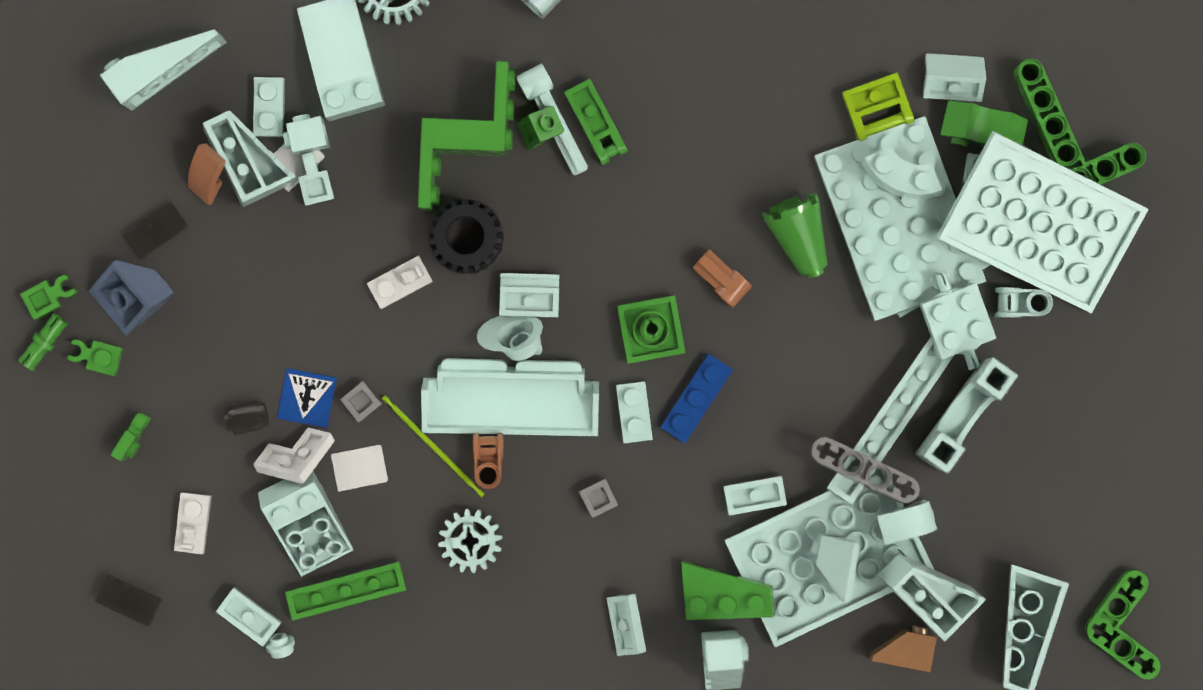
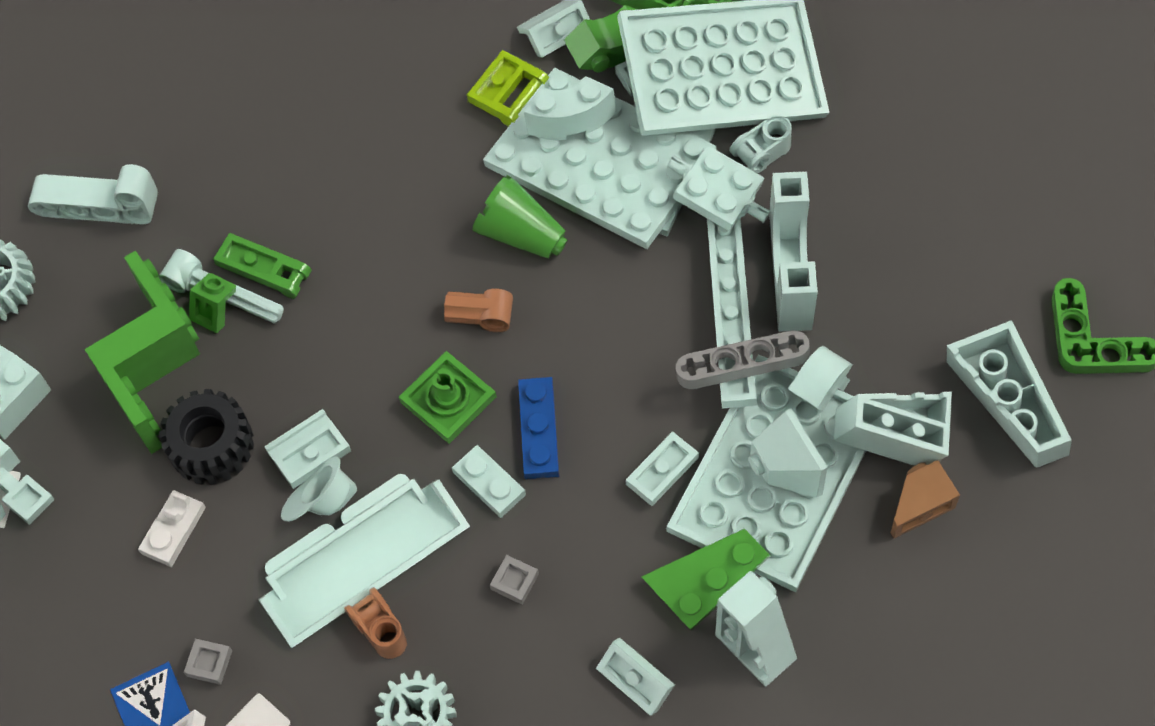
camera: 30 degrees left, 25 degrees down
(447, 460) = (314, 655): lime piece -> none

